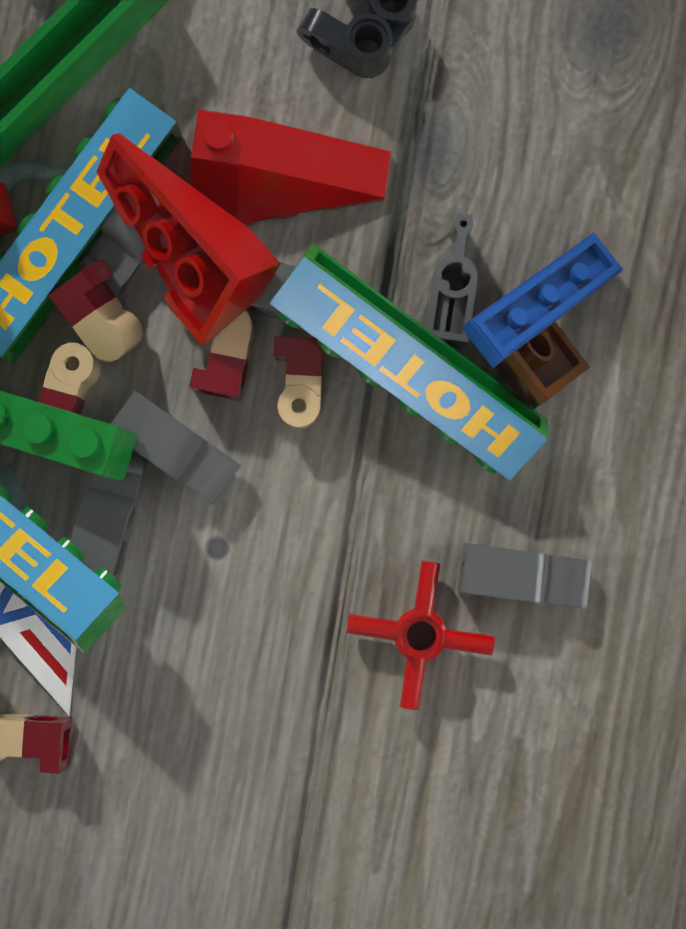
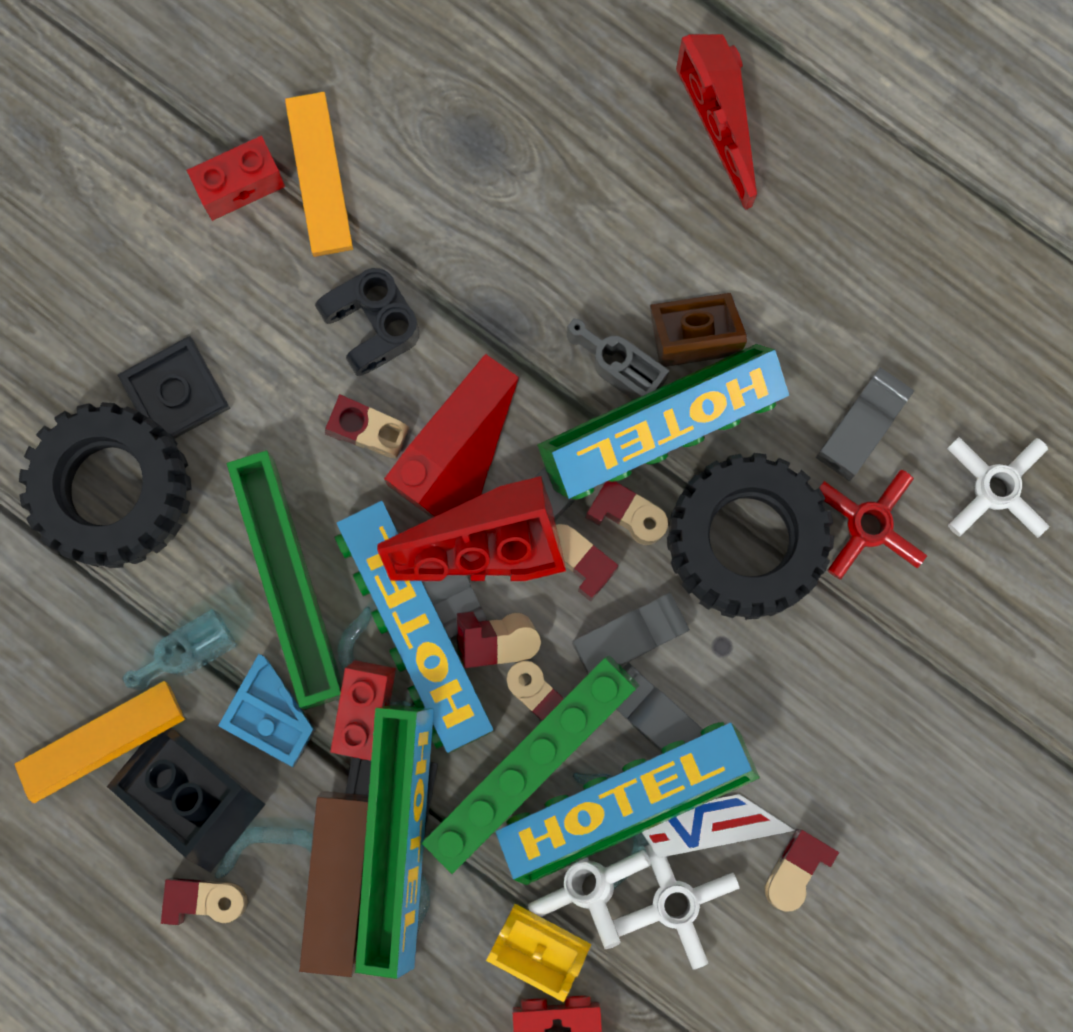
camera: 60 degrees left, 5 degrees down
(247, 67) = (366, 427): none -> leg
(352, 448) = (784, 492): none -> black tyre
(542, 300) = (666, 298): blue tile -> none
(549, 755) = (1009, 475): none -> white bar

